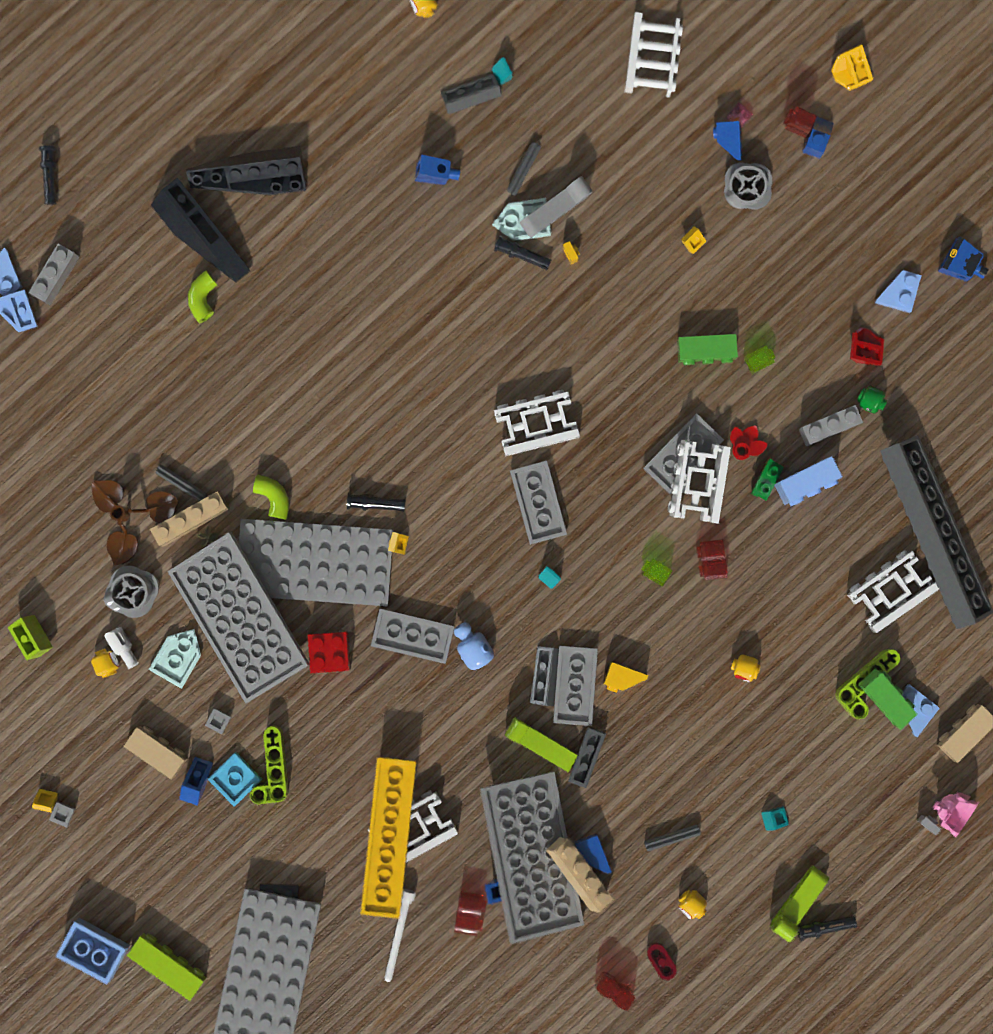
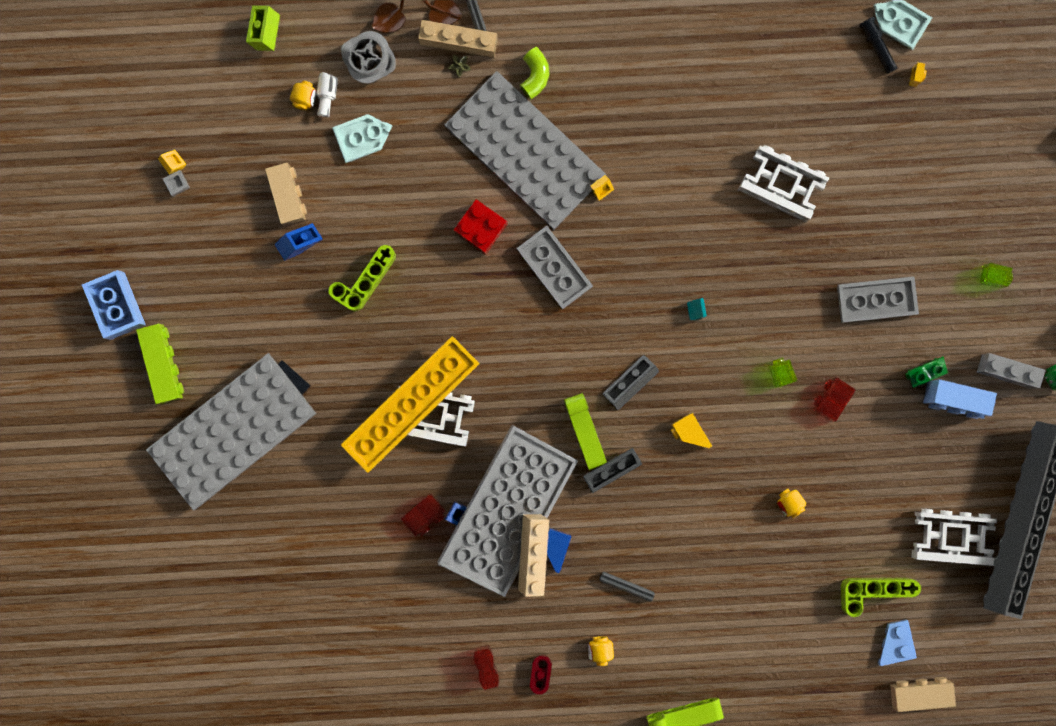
camera: 30 degrees right, 0 degrees up
(218, 721) = (352, 210): light grey plate -> none
(234, 779) = (329, 265): medium azure tile -> none
(238, 617) = (433, 143): light grey plate -> none
(365, 502) = (600, 138): black pin -> none
(407, 898) = (384, 464): white piece -> none
(473, 648) = (594, 315): light blue piece -> none
(538, 502) = (735, 245): light grey plate -> none
(556, 207) = (937, 30): light grey beam -> none
(575, 685) = (648, 408): light grey plate -> none
(693, 240) = (1020, 142): yellow plate -> none
(707, 349) = (963, 234): bright green brick -> none
(714, 481) = (885, 340): white fence -> none
(748, 440) = (935, 331): red plate -> none
(775, 818) = (718, 637): teal slope -> none
(888, 698) = (885, 617): bright green brick -> none

